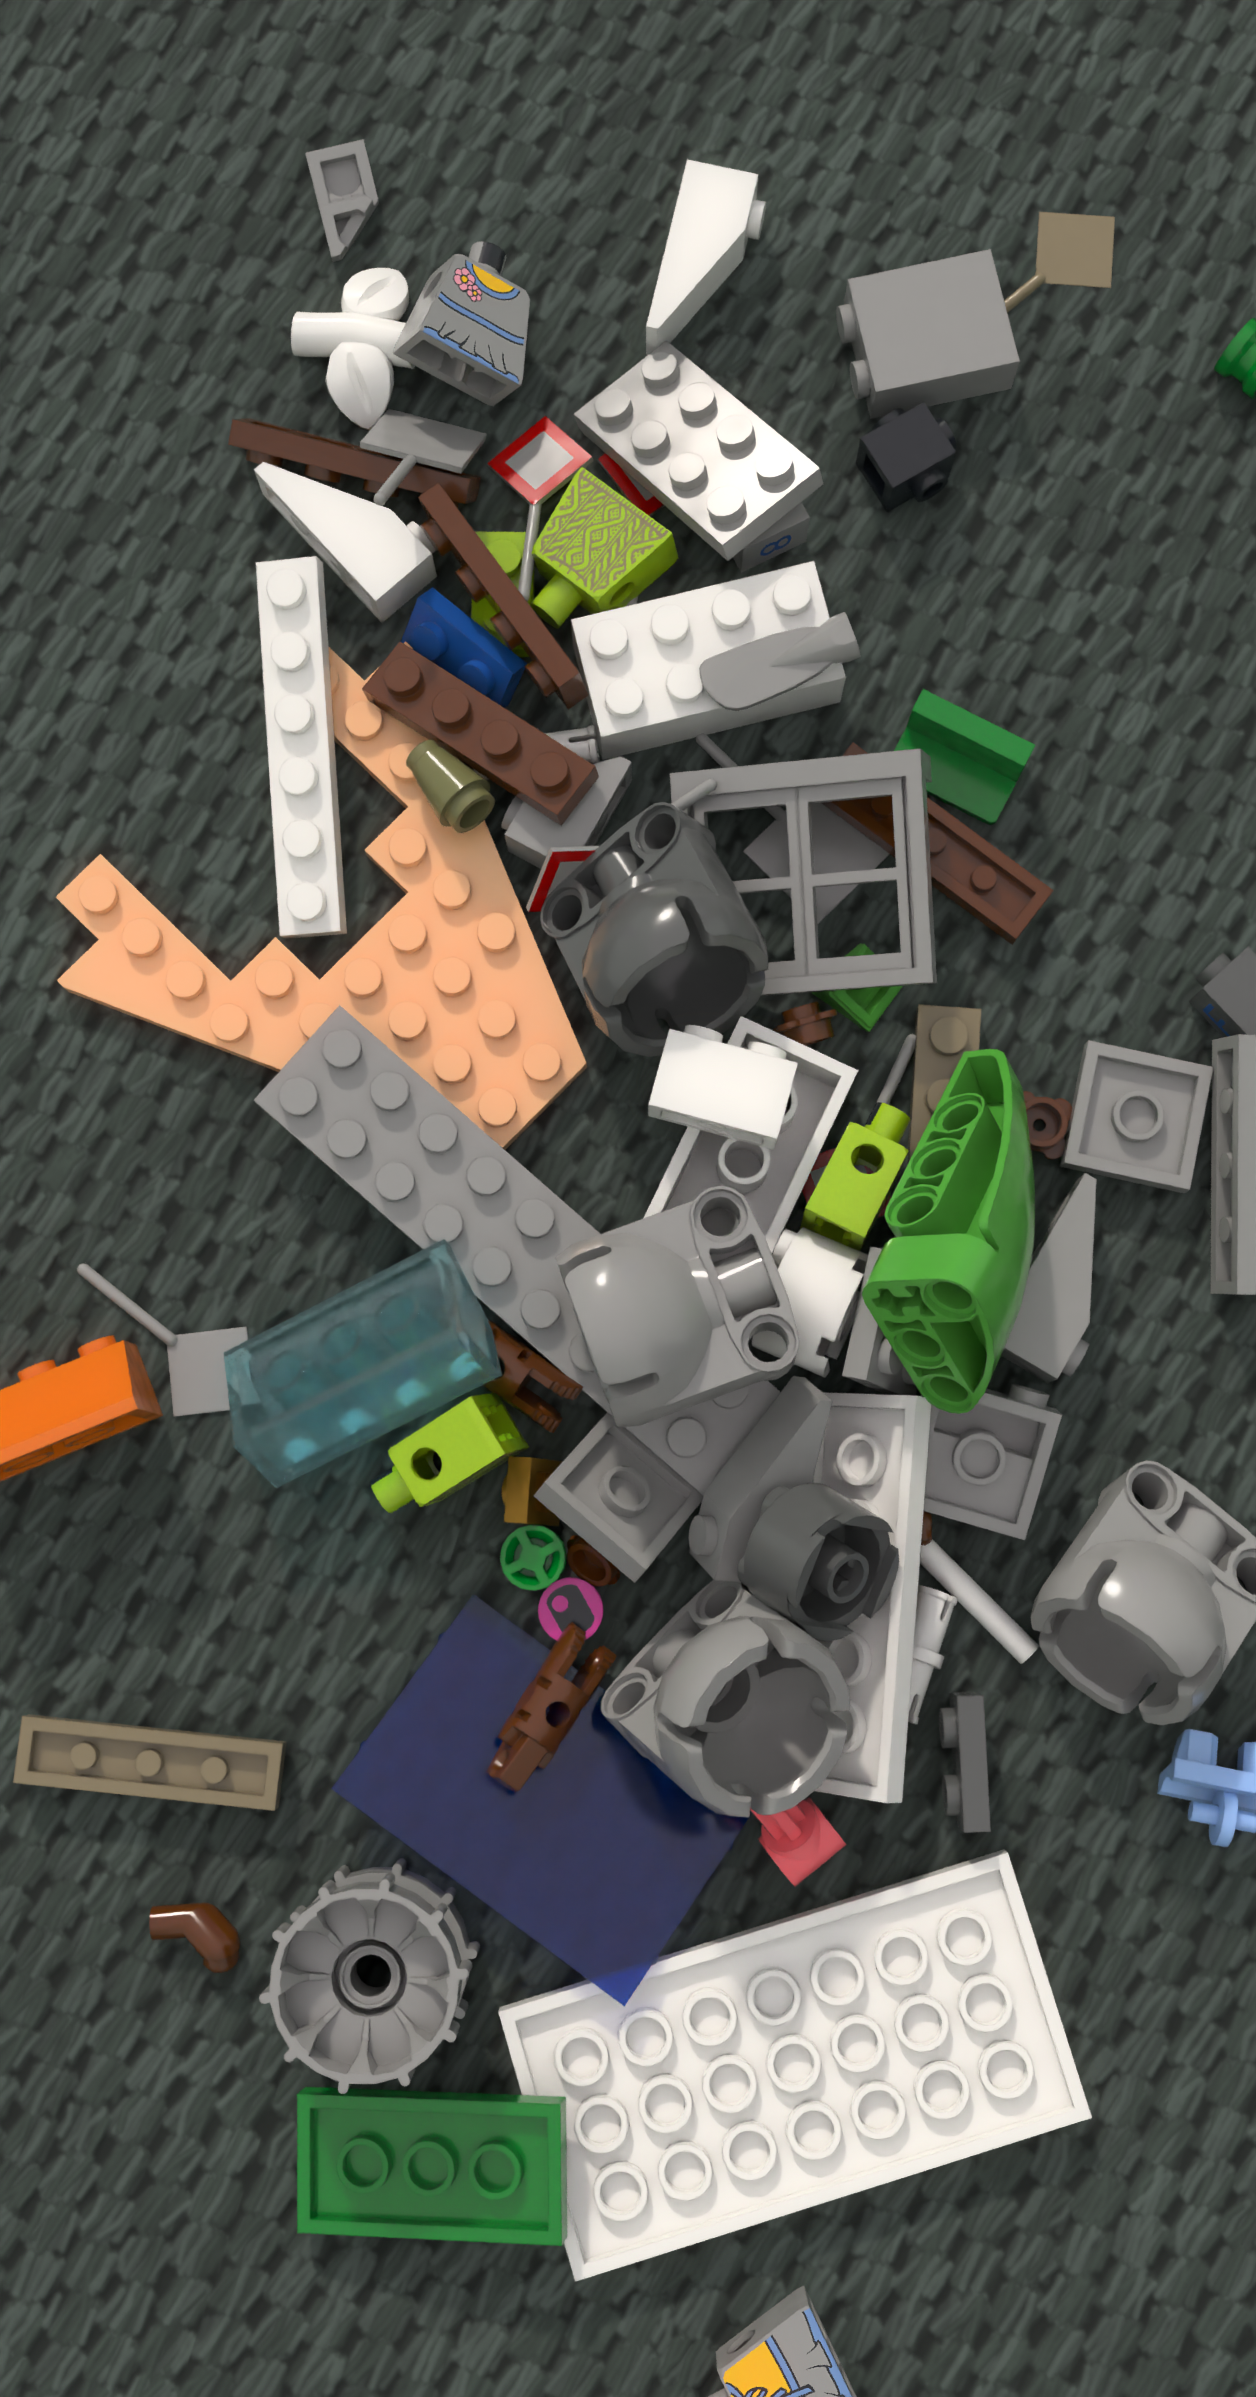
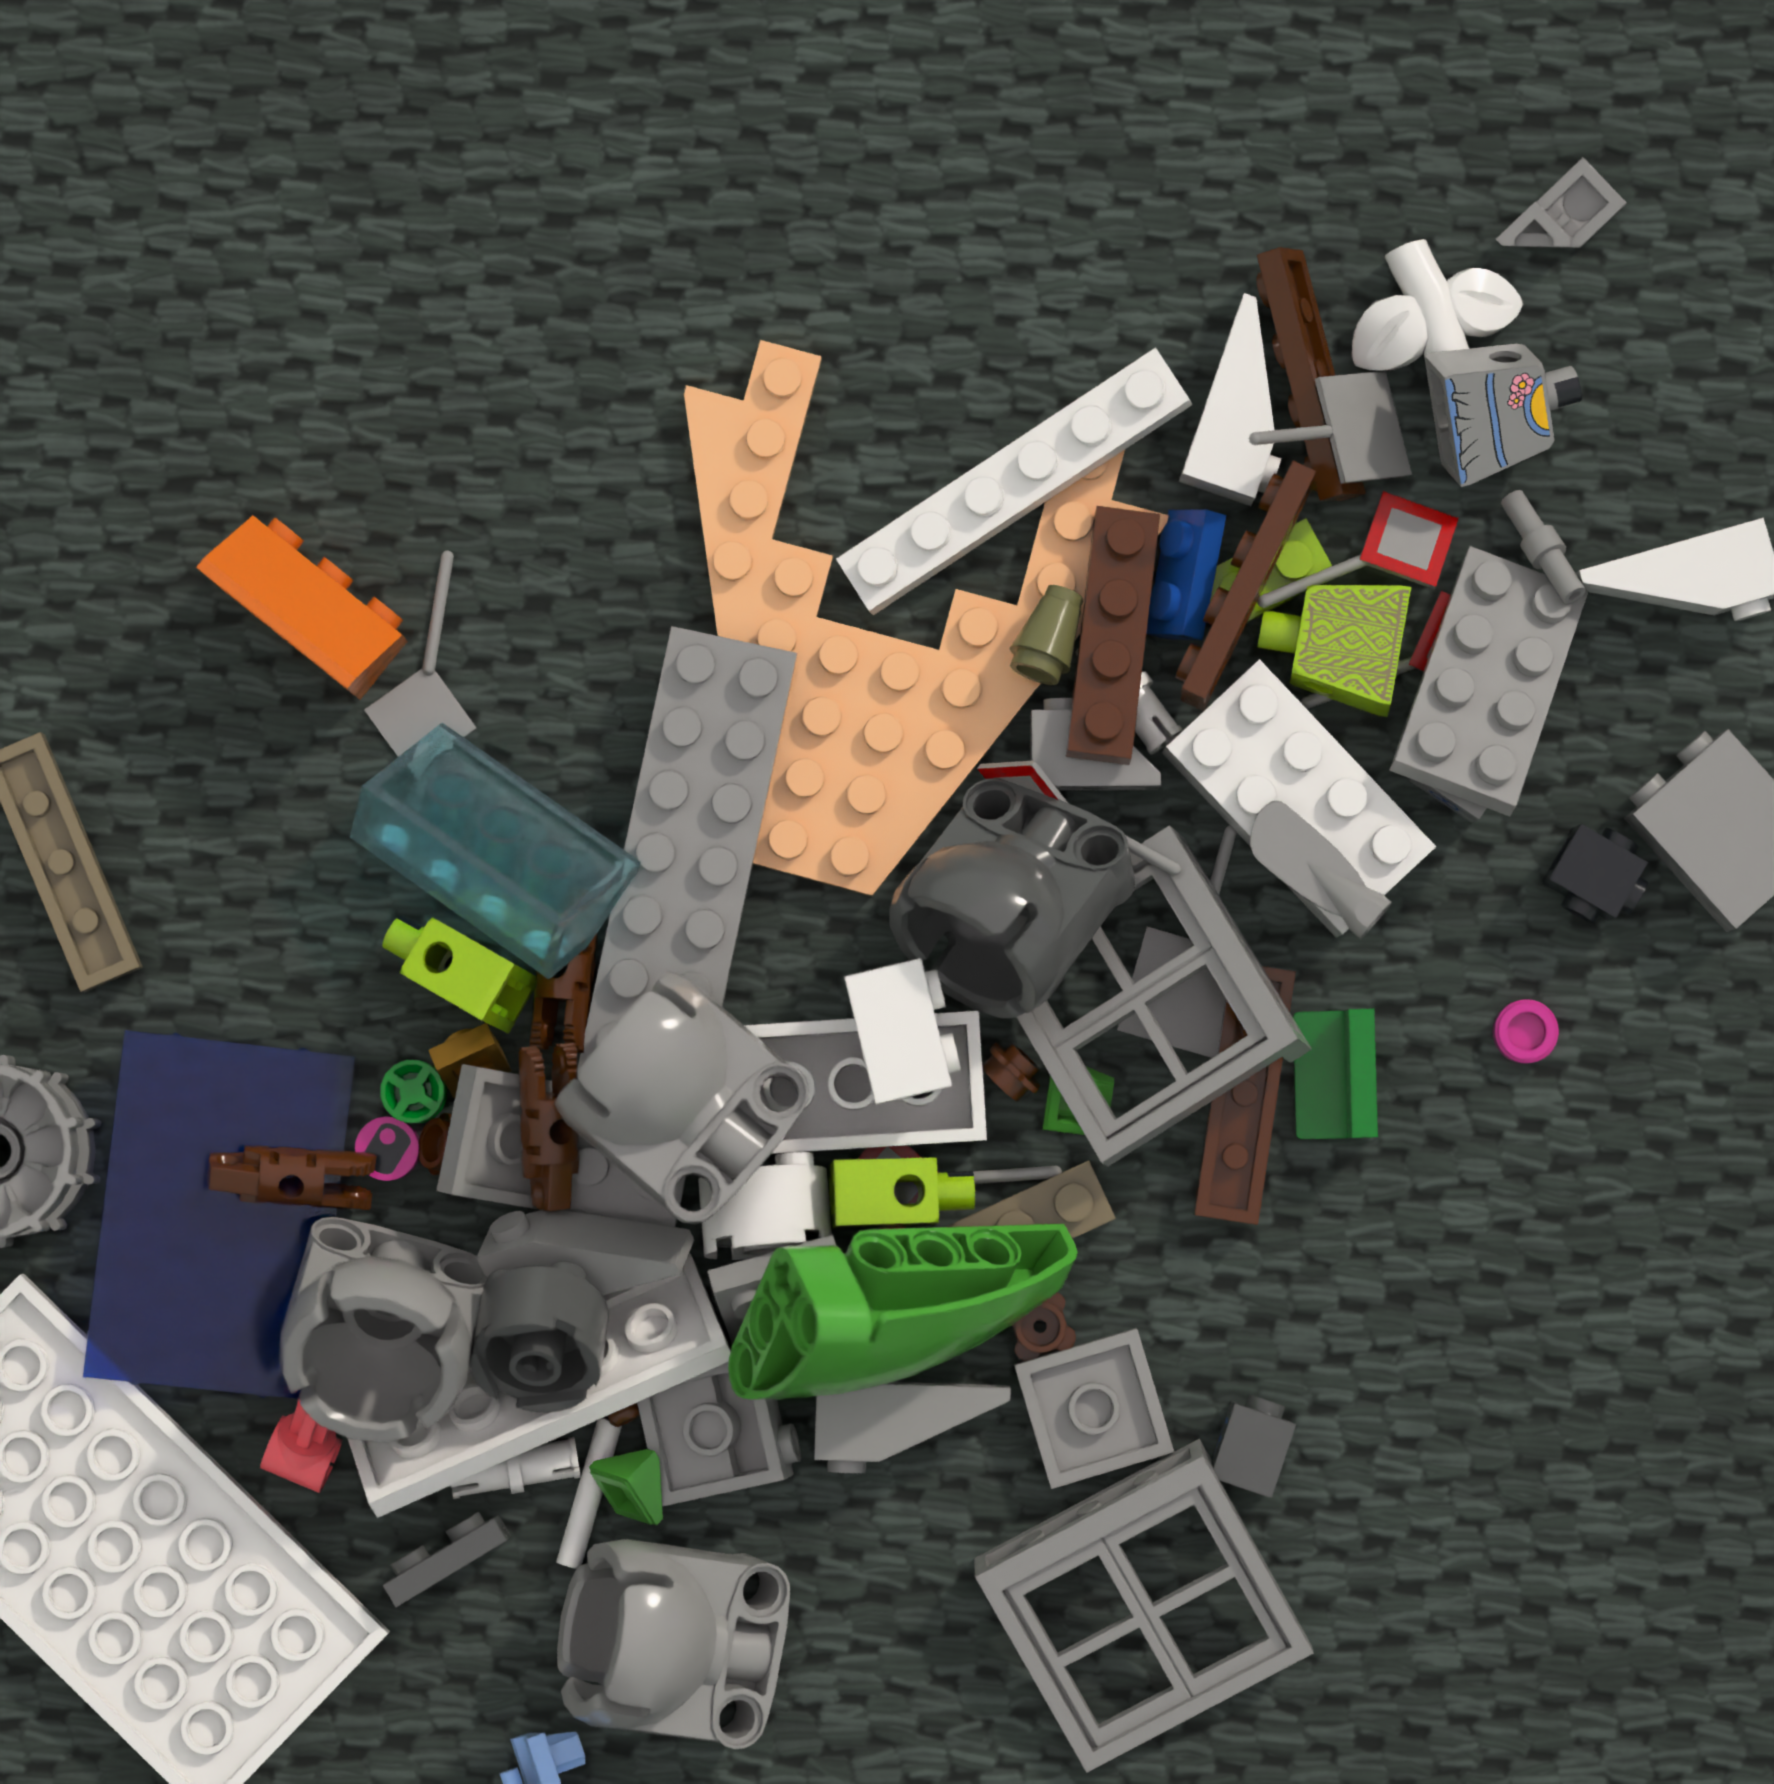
camera: 55 degrees right, 5 degrees up
(609, 353) = (1543, 546): none -> light grey bar
(632, 1452) = (548, 1142): none -> reddish brown hinge
(991, 1555) = (632, 1484): none -> bright green slope
(1006, 589) = (1525, 1031): none -> dark pink tile

